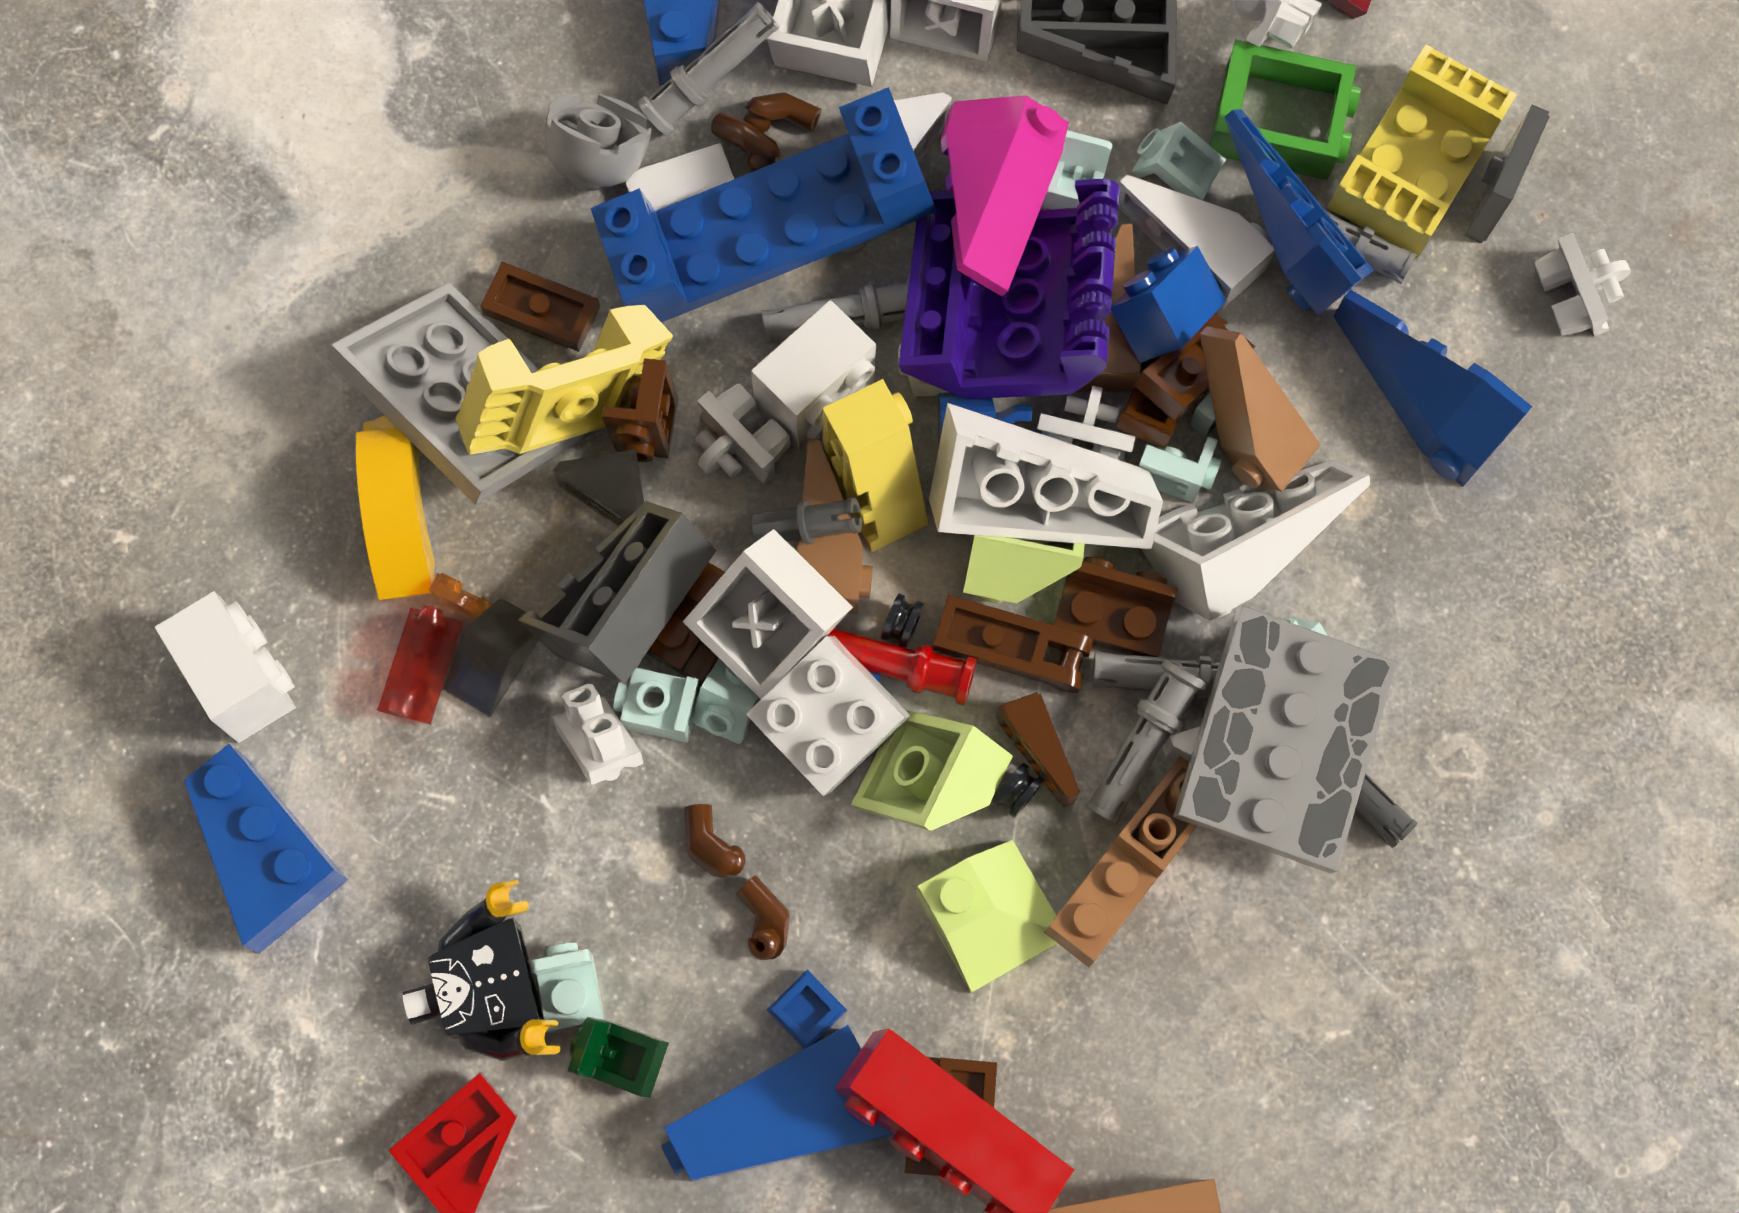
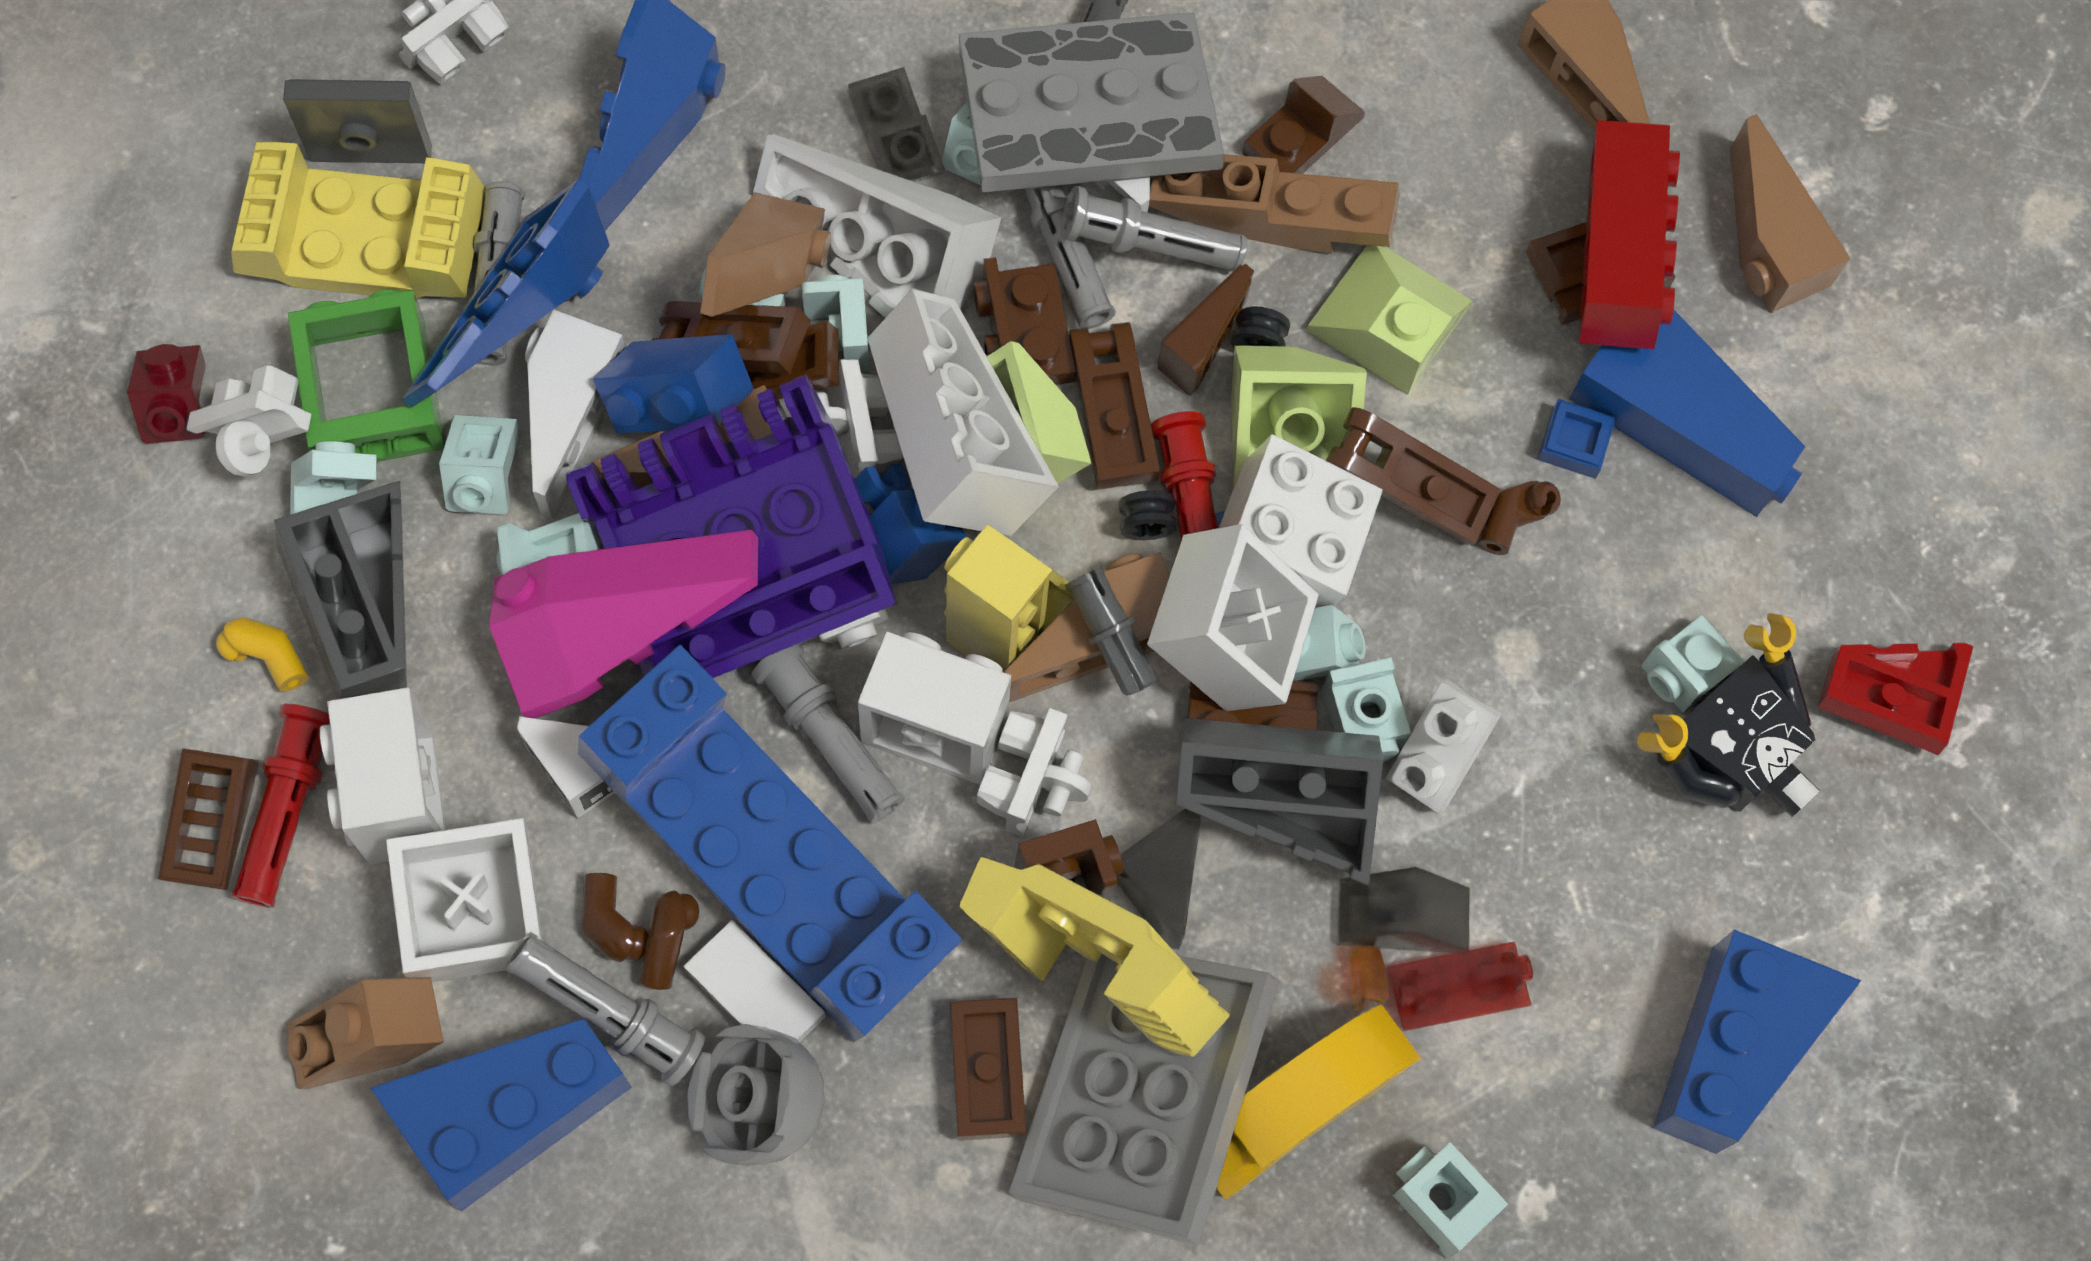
camera: 120 degrees left, 5 degrees down
(226, 667) = (1593, 1170): white brick -> none
(260, 557) = (1472, 1197): none -> light aqua brick
(617, 1056) = (1727, 579): dark green bracket -> none
(706, 848) = (1481, 602): reddish brown arm -> none
(827, 837) = (1416, 477): none -> reddish brown plate
(1198, 934) = (1306, 126): none -> reddish brown slope
(1203, 48) = (329, 475): none -> light aqua bracket
(1341, 593) = (894, 126): none -> clear smoke slope

